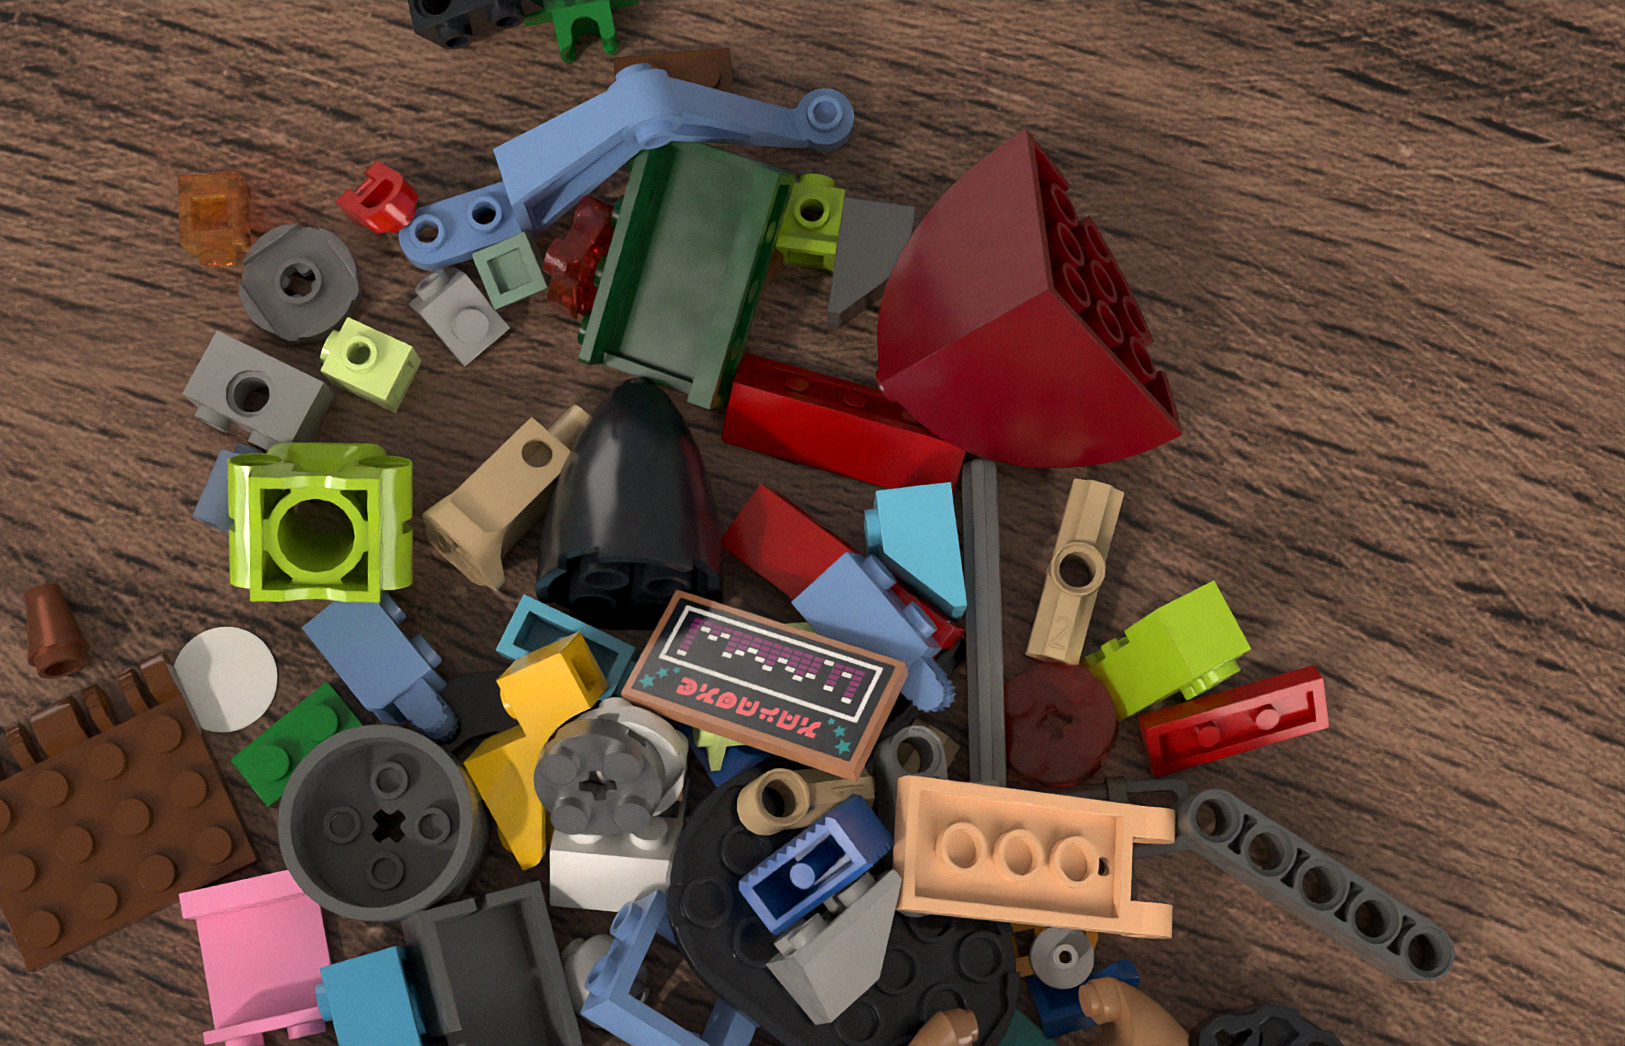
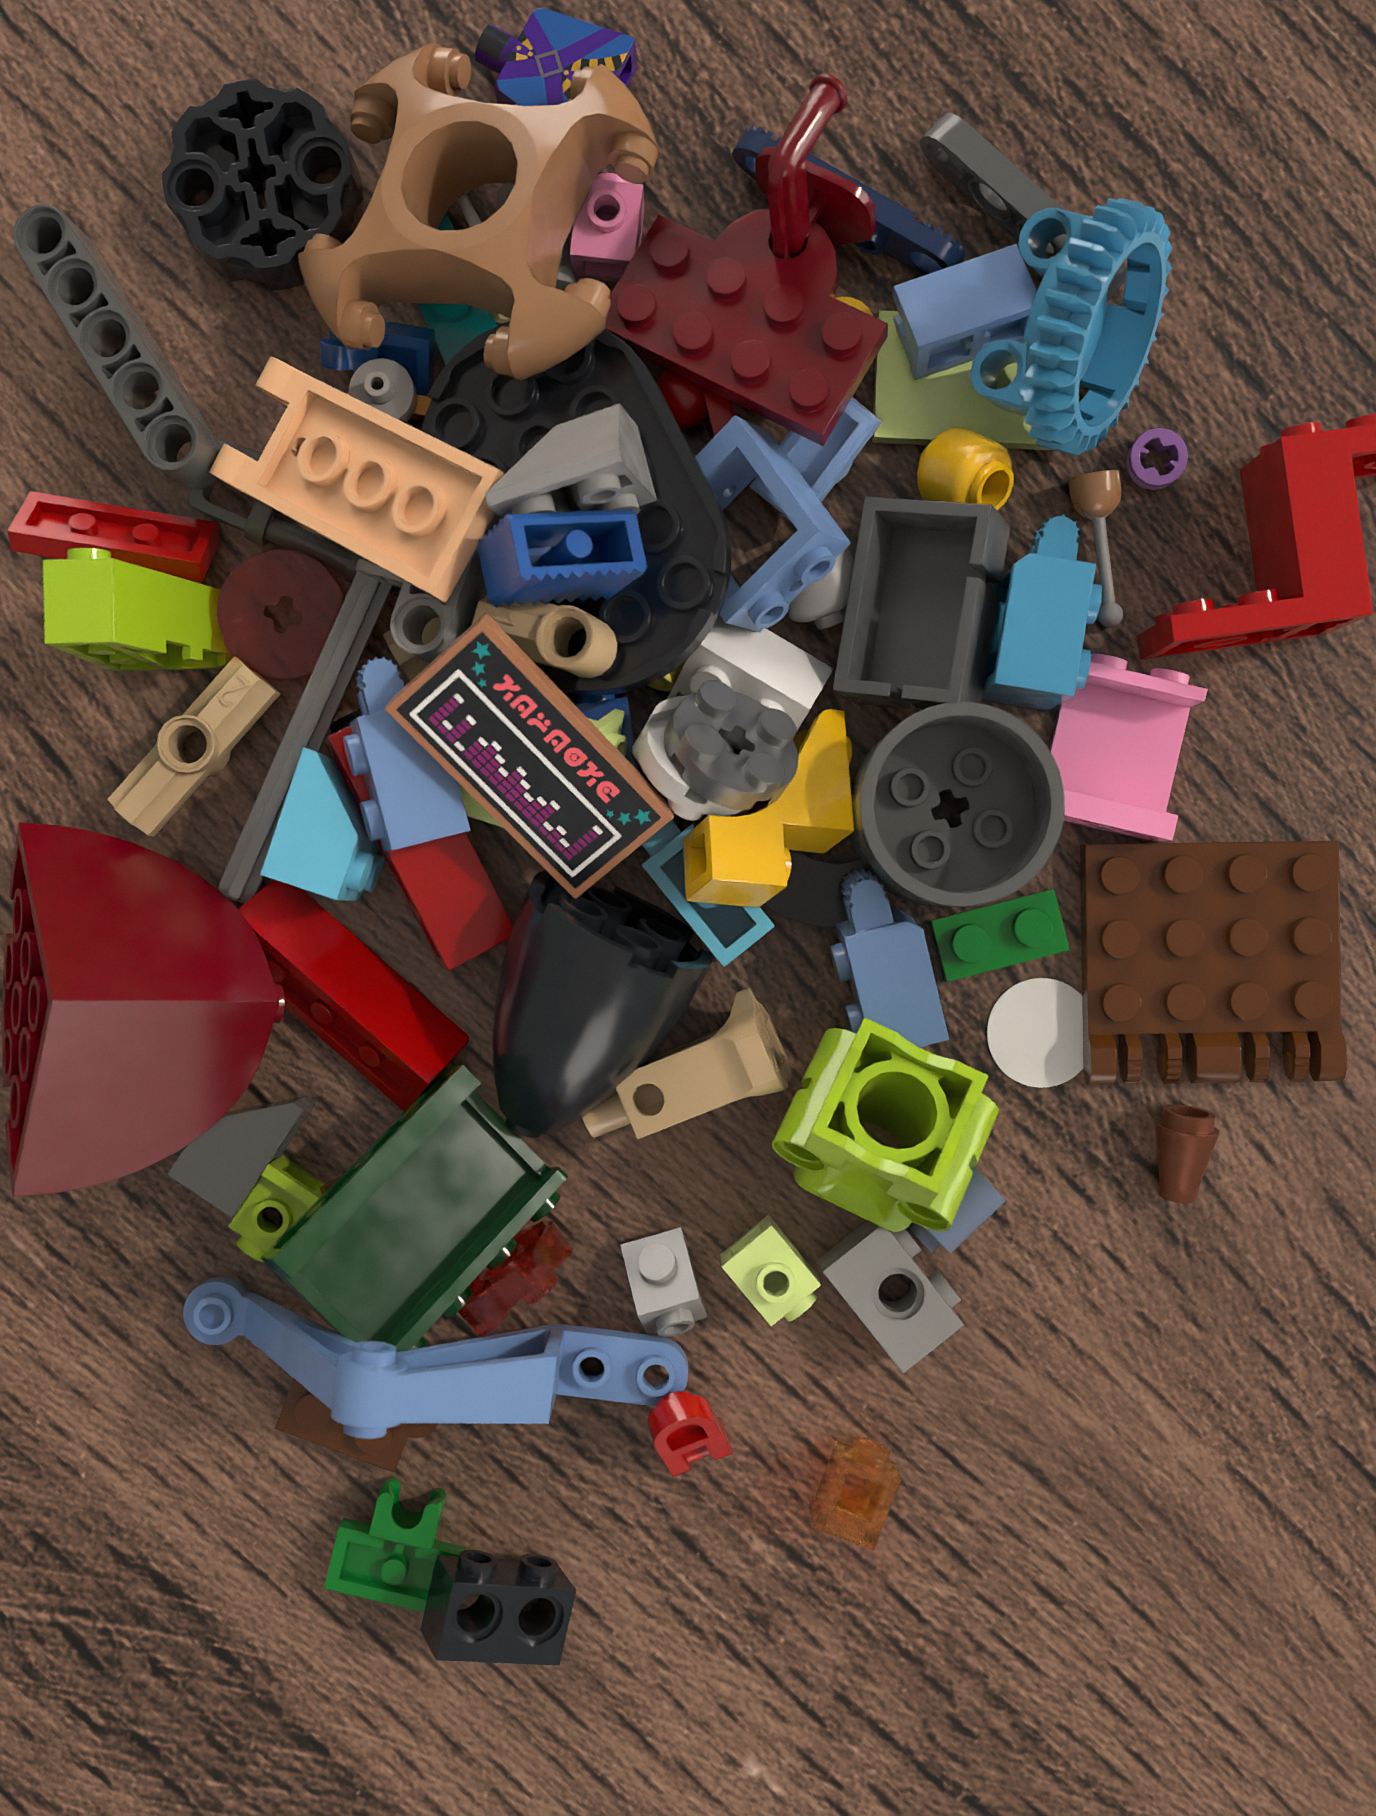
camera: 160 degrees left, 10 degrees up
(298, 318) = (833, 1404): flat silver plate -> none
(512, 270) = (590, 1298): sand green tile -> none

